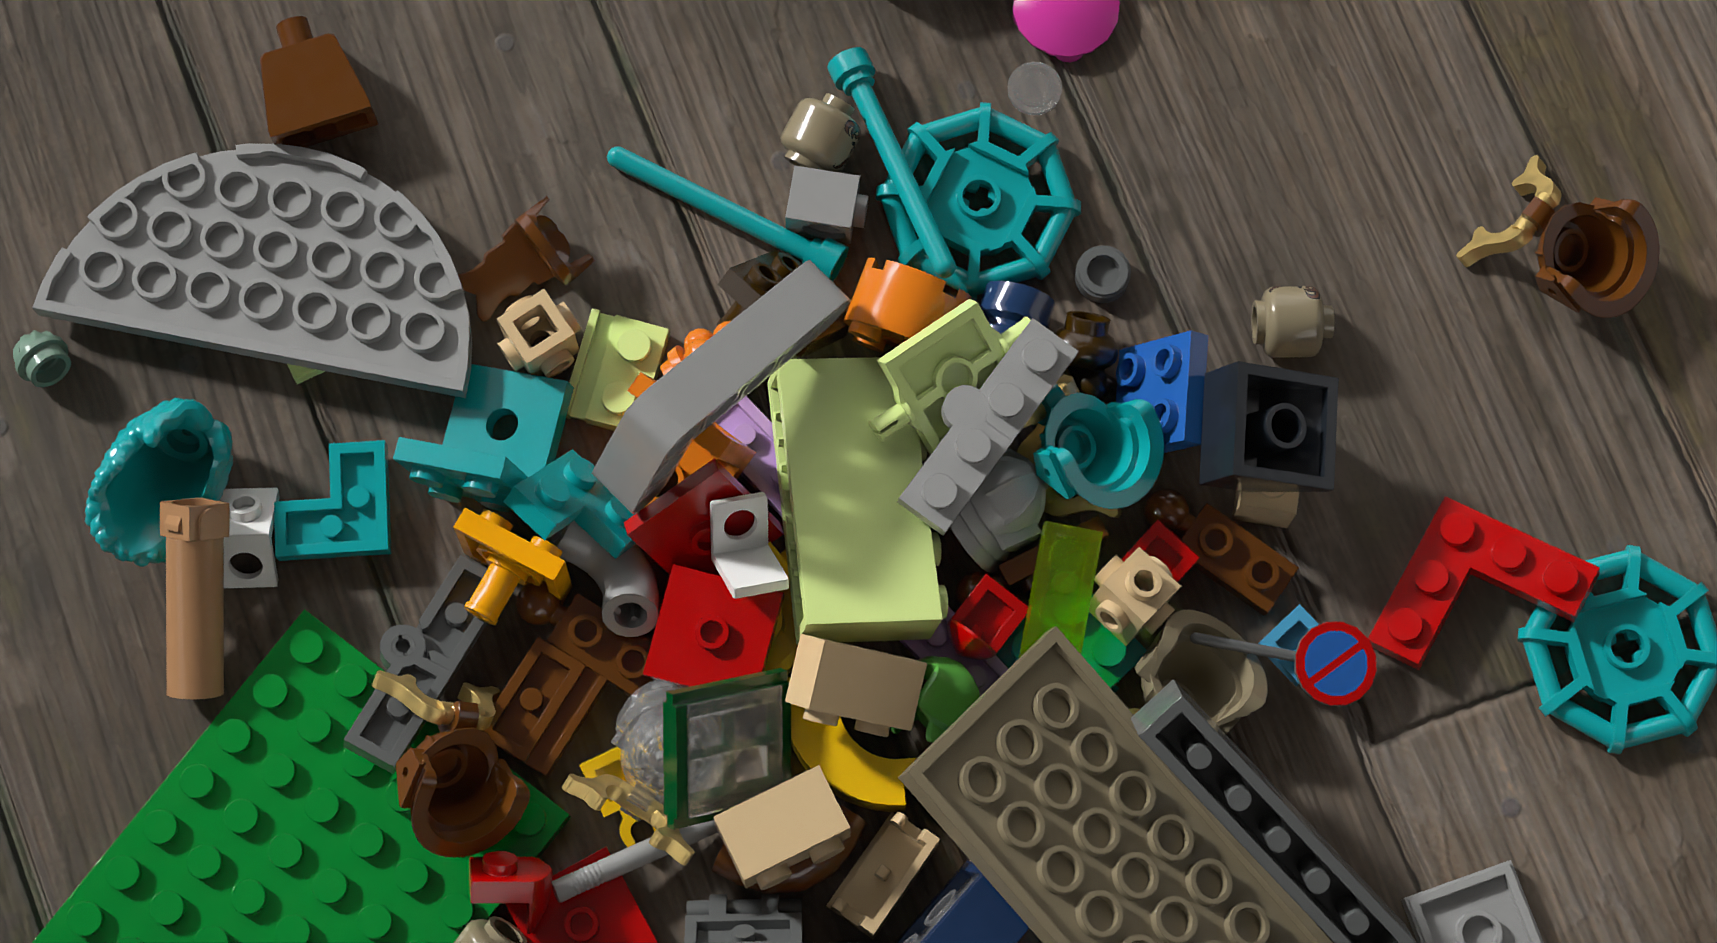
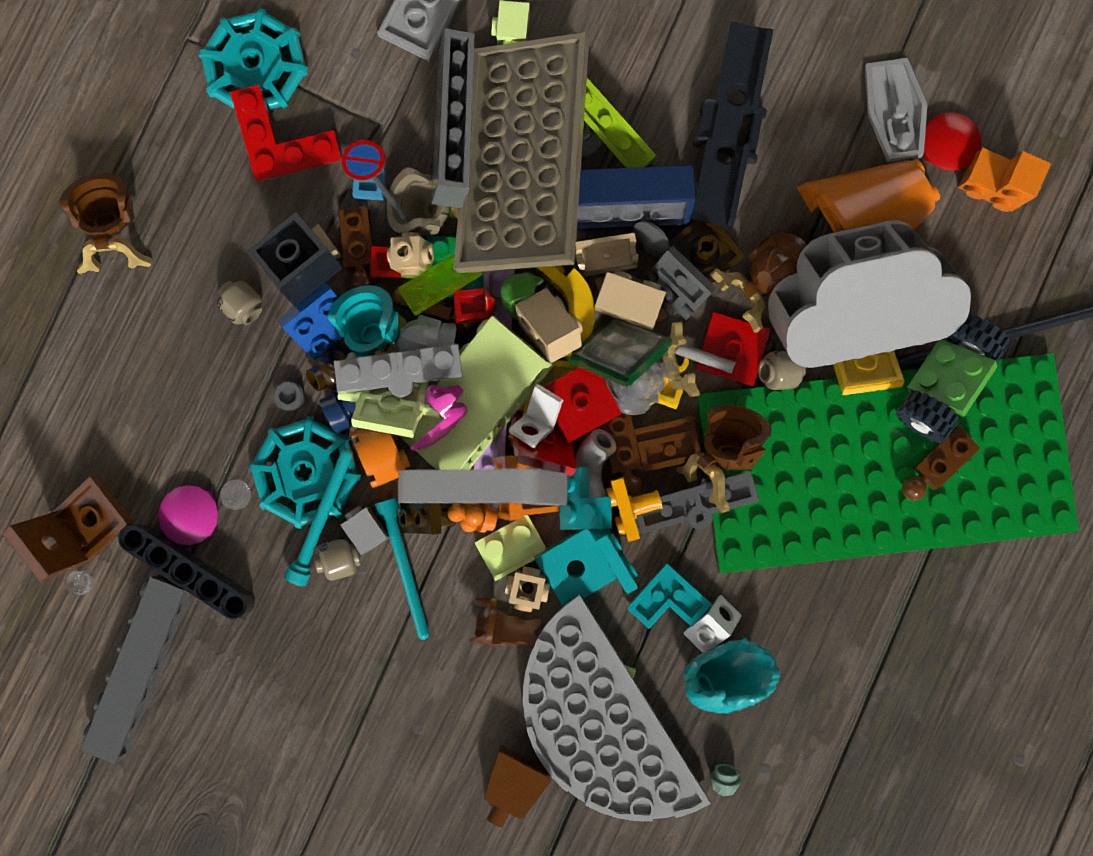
camera: 130 degrees left, 10 degrees up
(194, 596) = (753, 624): medium nougat piece -> none
(511, 879) = (747, 386): red plate -> none
(870, 438) = (445, 403): none -> dark pink hair

